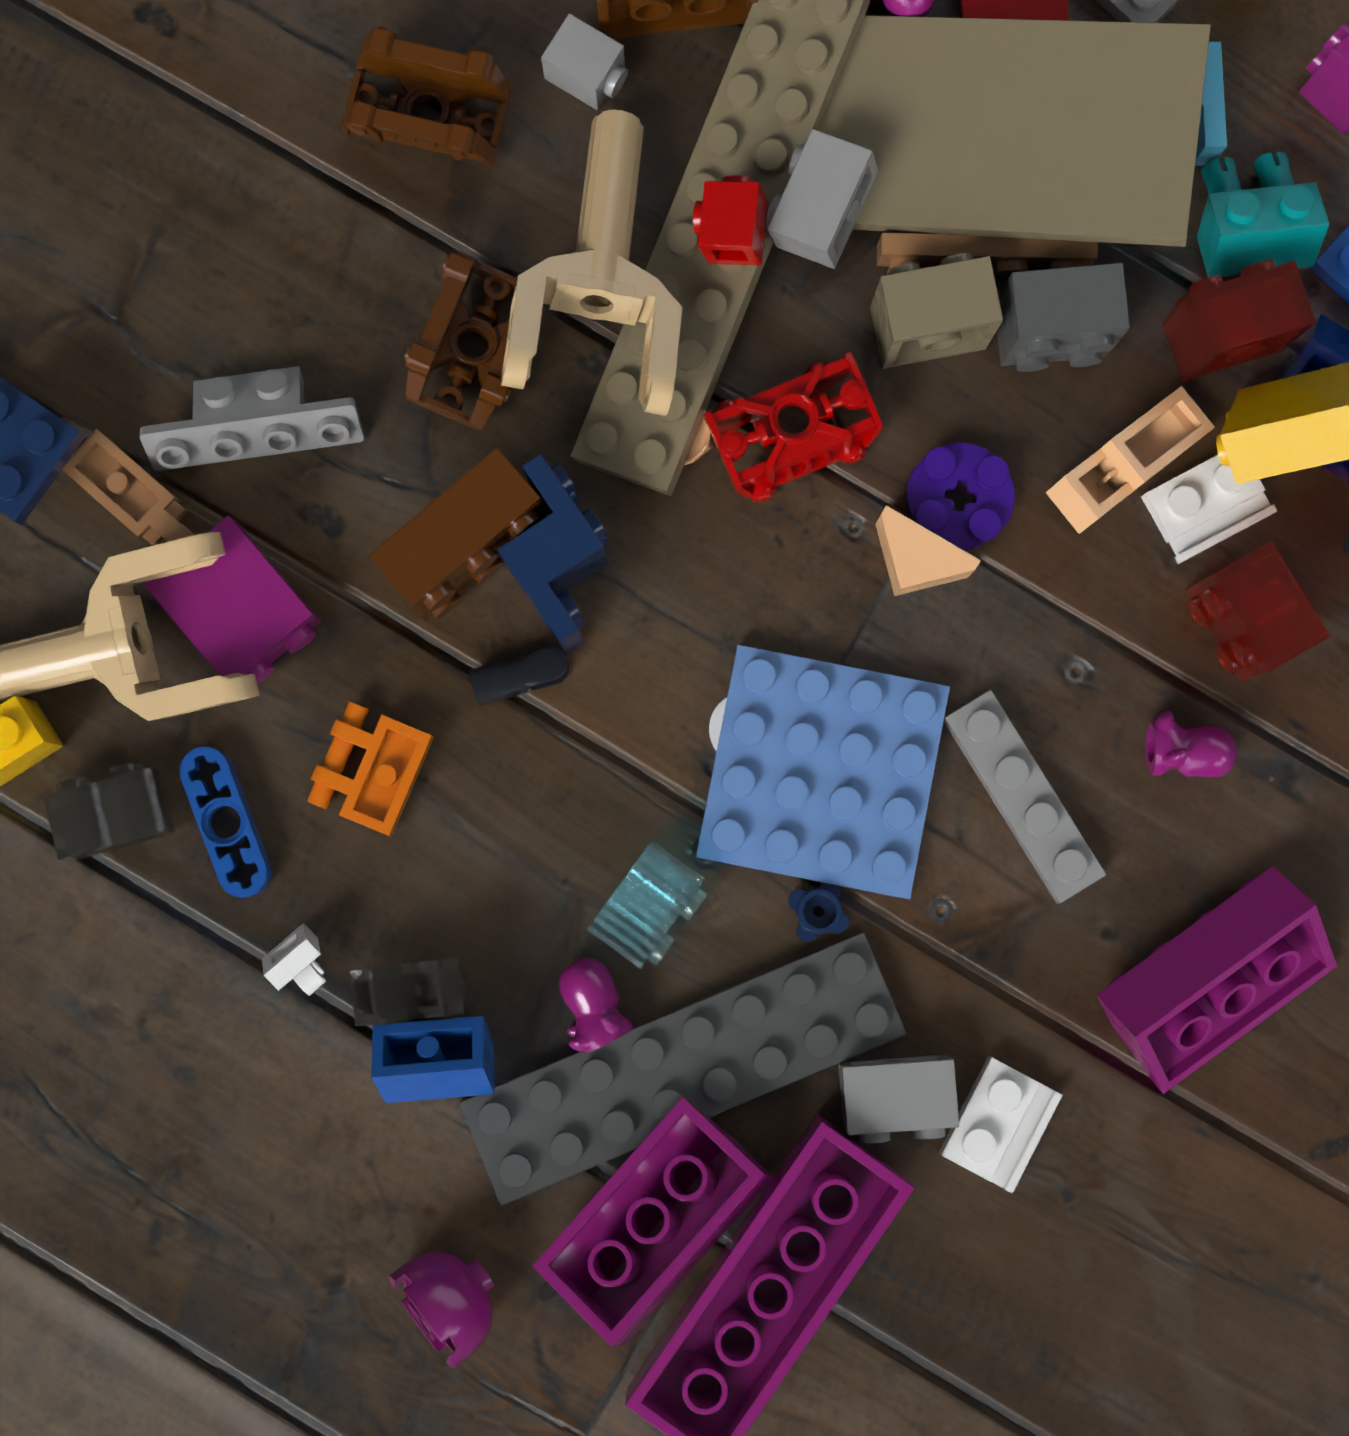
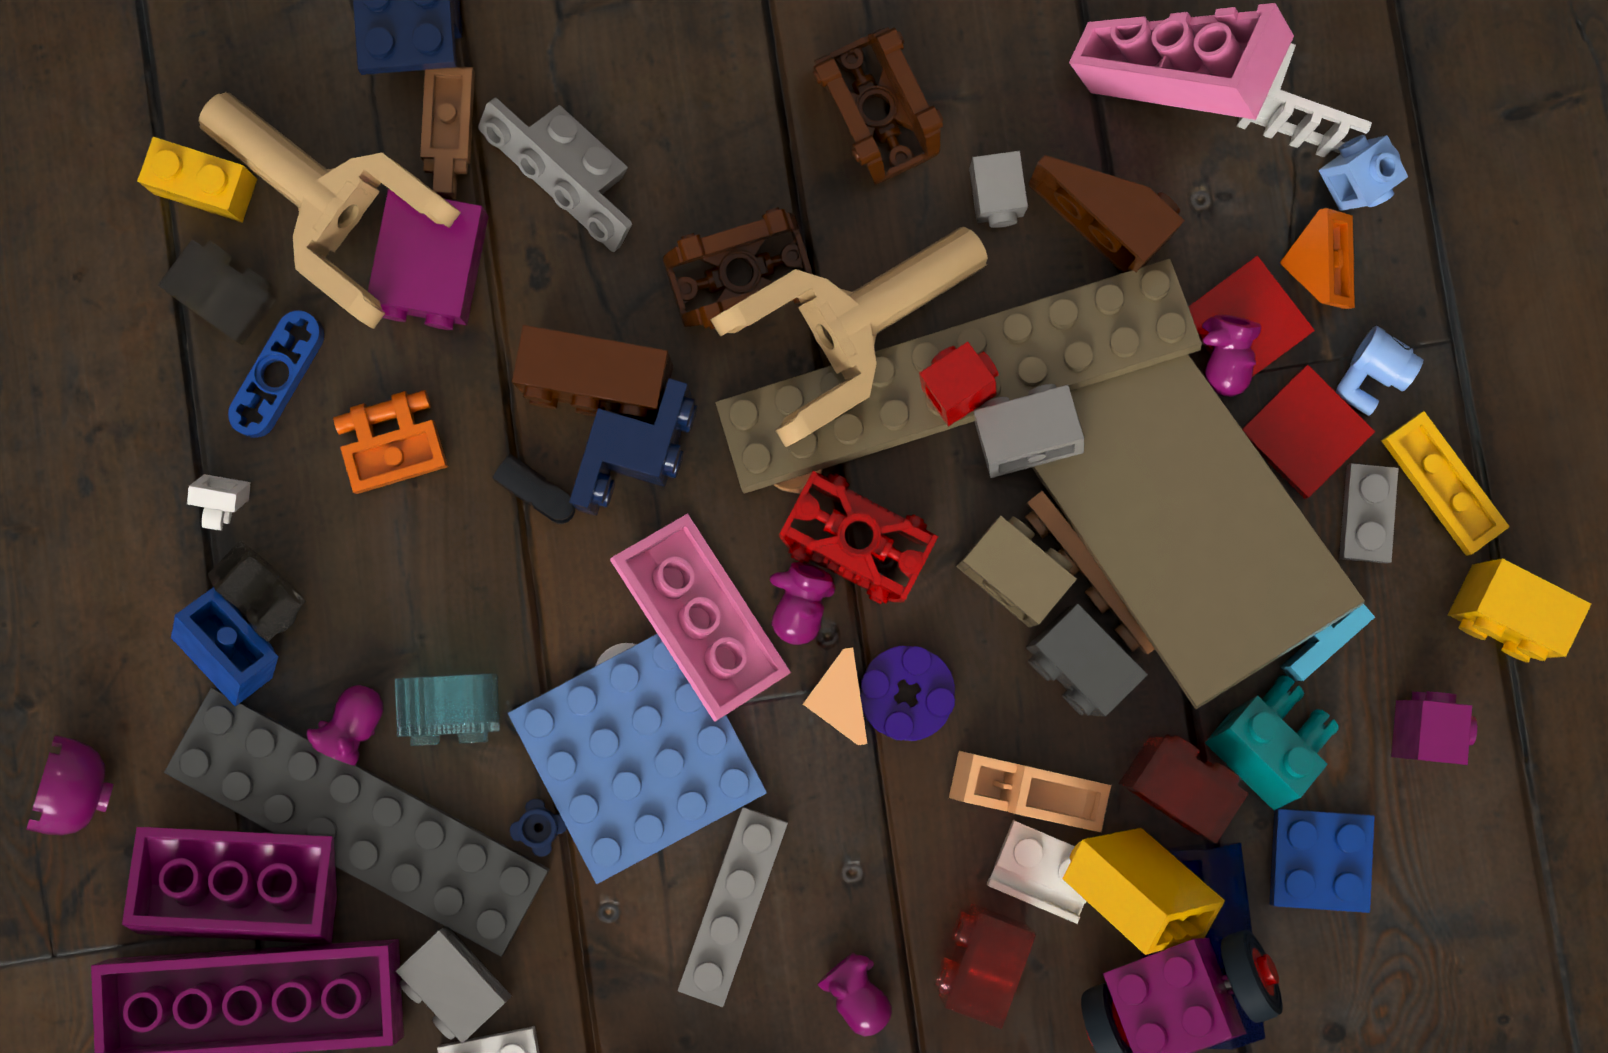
camera: 50 degrees right, 0 degrees up
(749, 619) = (700, 617): none -> bright pink slope
(813, 526) = (801, 607): none -> magenta animal

